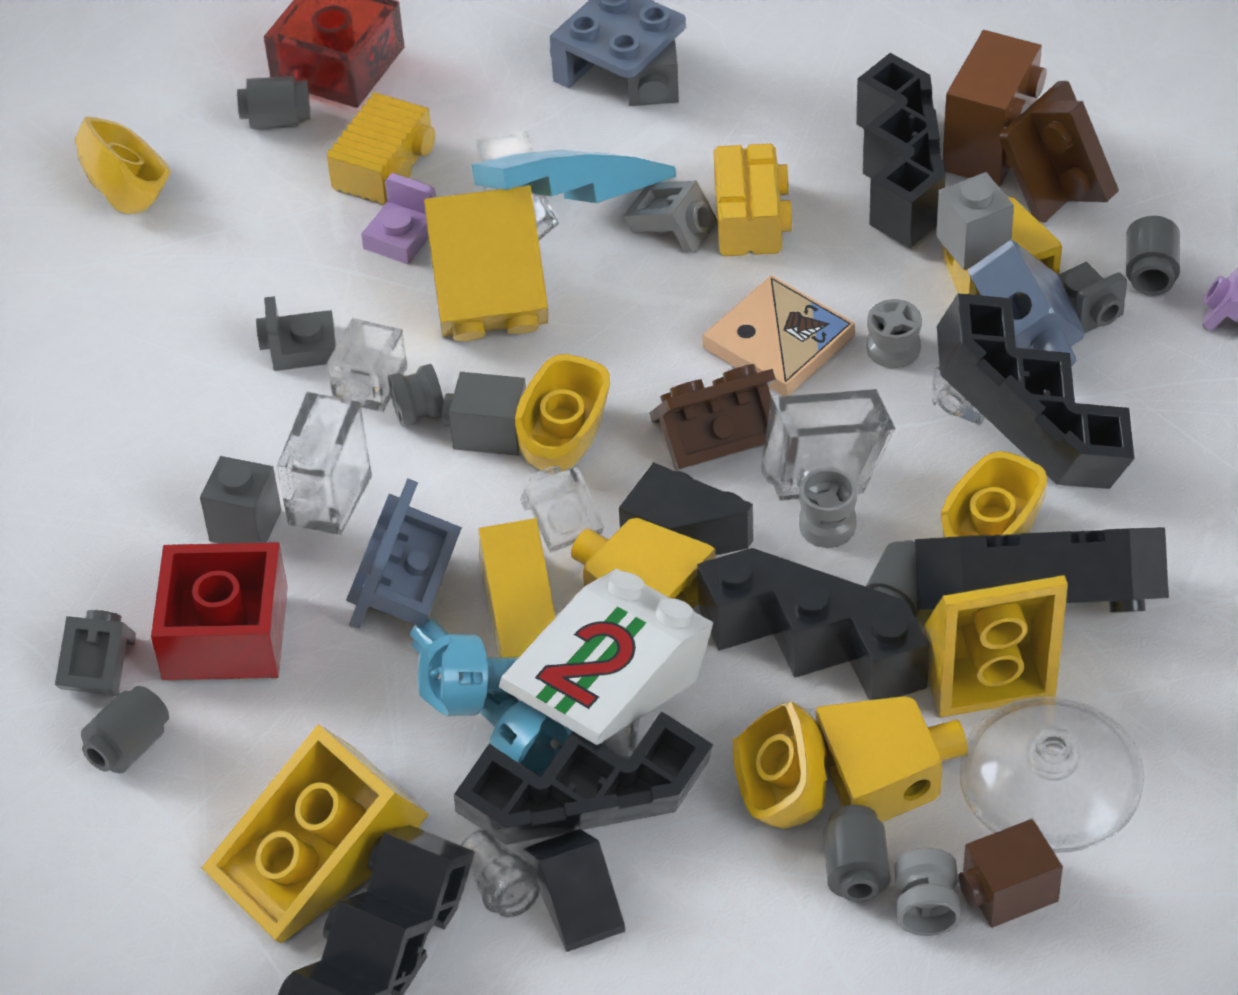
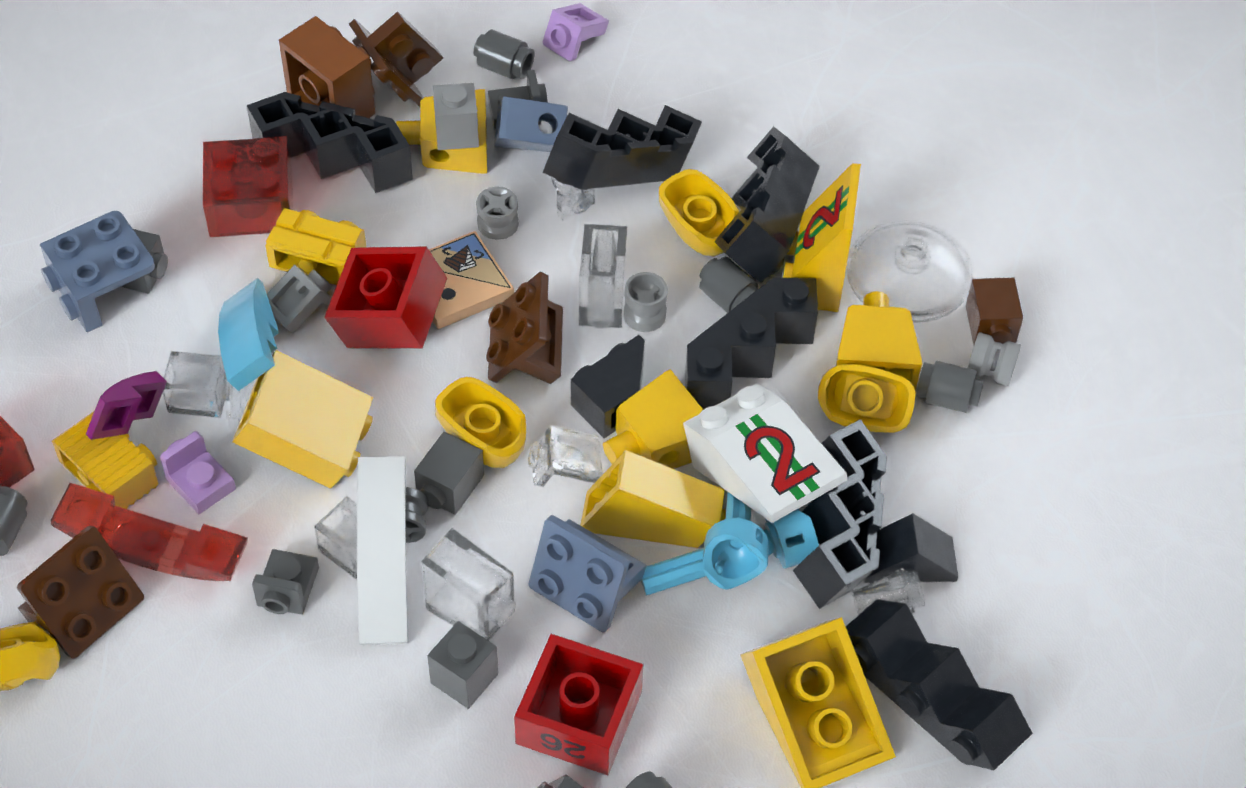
camera: 75 degrees left, 5 degrees up
(210, 182) = (79, 592): none -> reddish brown bracket
(304, 208) = (148, 540): none -> clear red slope
(354, 367) = (382, 550): none -> white slope
(416, 106) = (124, 402): none -> magenta slope
(690, 270) = (386, 297): none -> red brick
(803, 109) = (246, 185): none -> clear red brick

